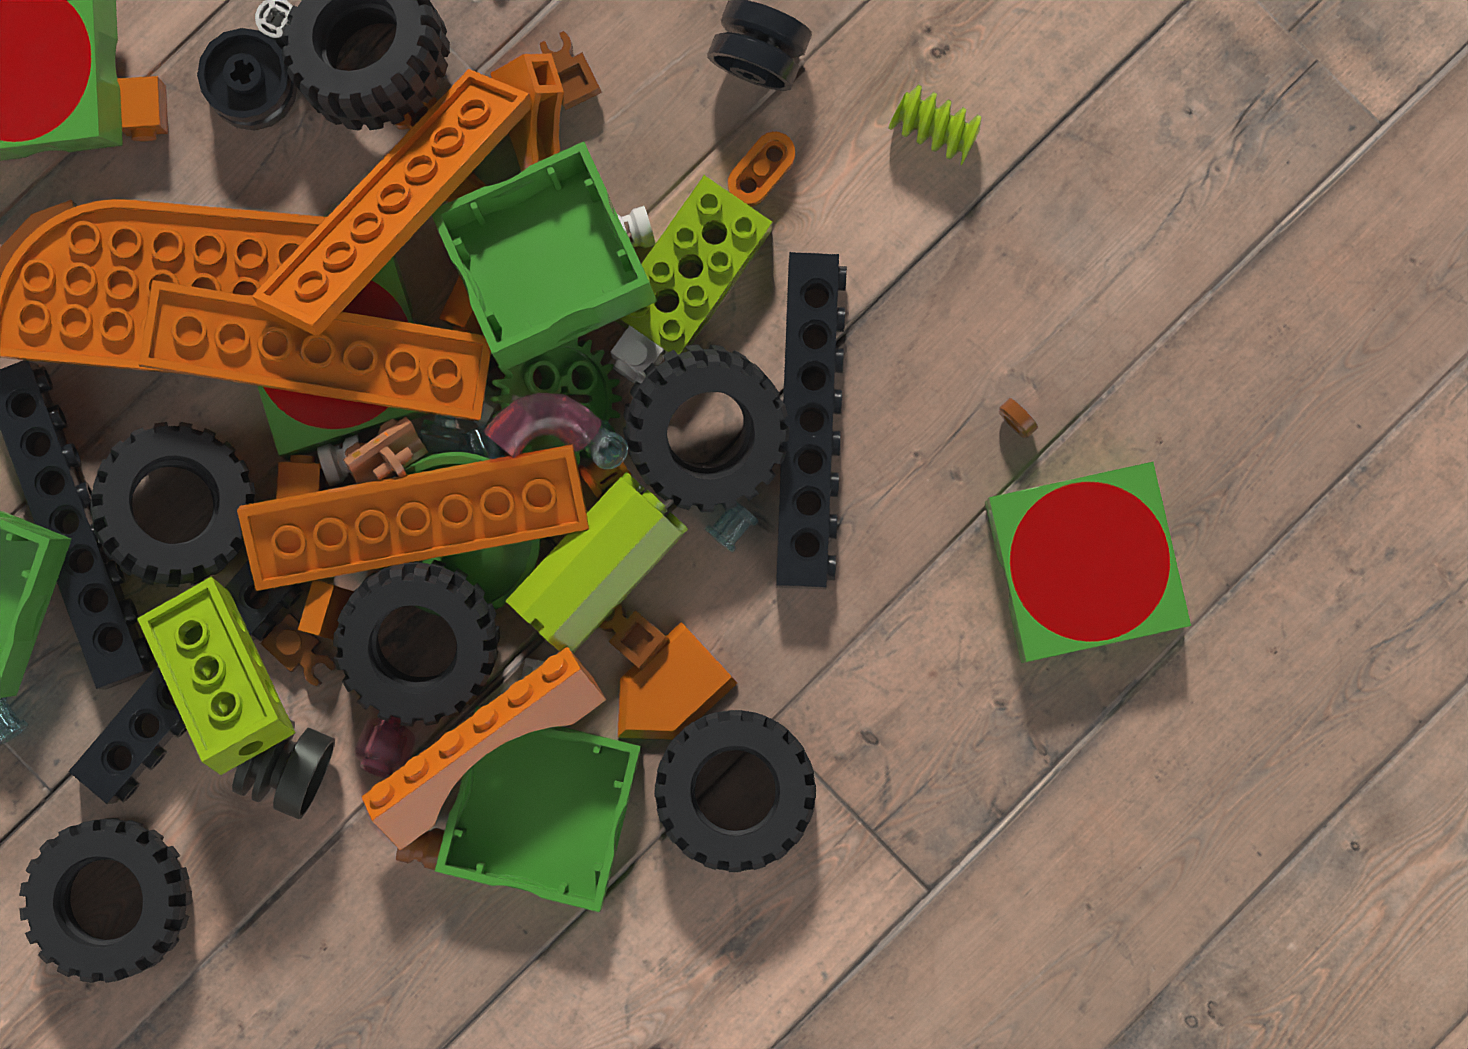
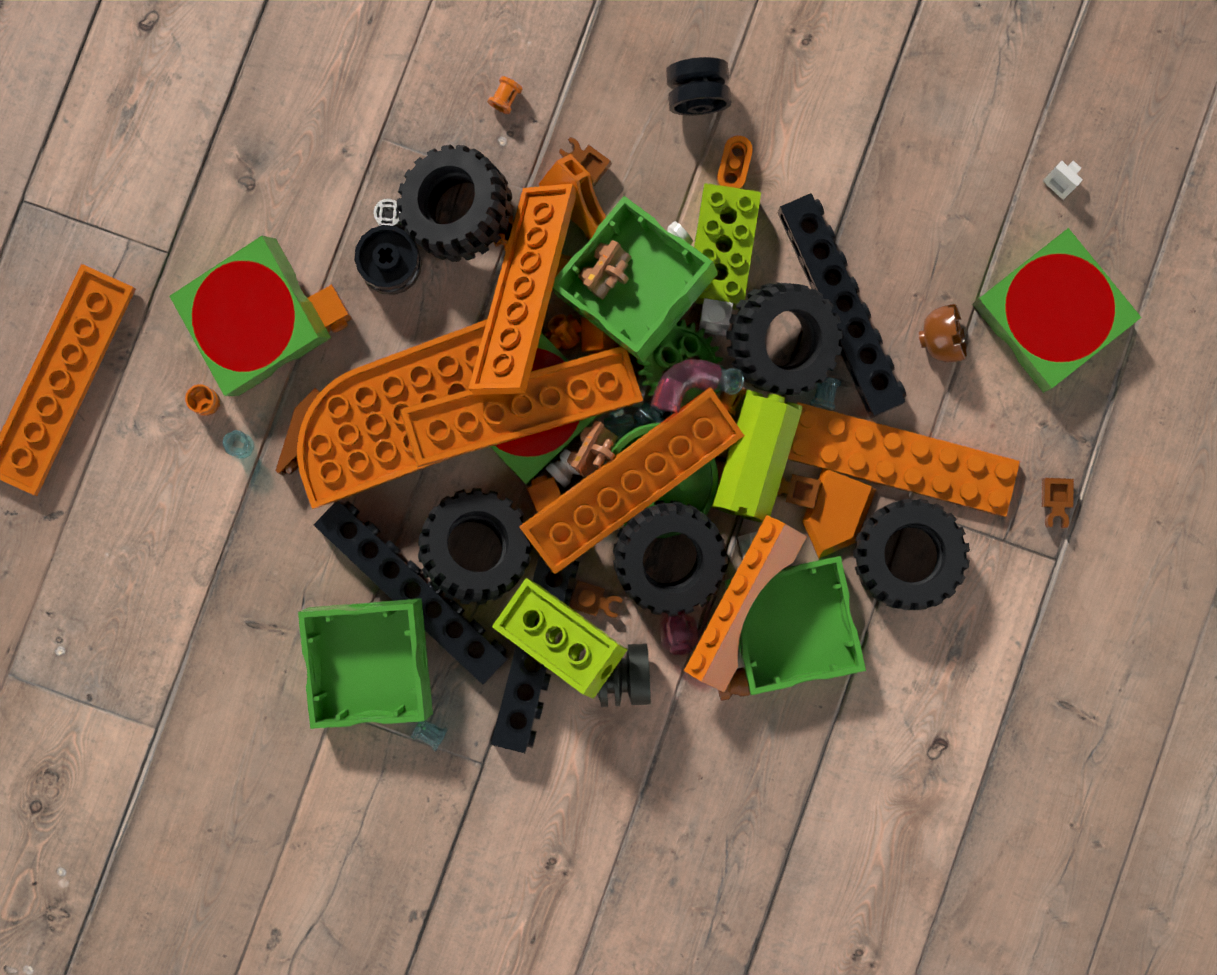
camera: 30 degrees left, 0 degrees up
(51, 913) = (545, 853): black tyre -> none
(323, 609) = (601, 566): orange piece -> none
(429, 281) = (563, 331): none -> orange gear
(515, 227) = (608, 269): none -> nougat hips
(790, 661) = (904, 460): none -> orange plate
(923, 524) = (944, 334): none -> dark orange cylinder
(936, 123) = (830, 83): lime piece -> none
(969, 807) = (1057, 495): none -> dark orange plate
(1017, 418) = (969, 242): dark orange tile -> none
(1184, 394) = (1063, 179): none -> white tile

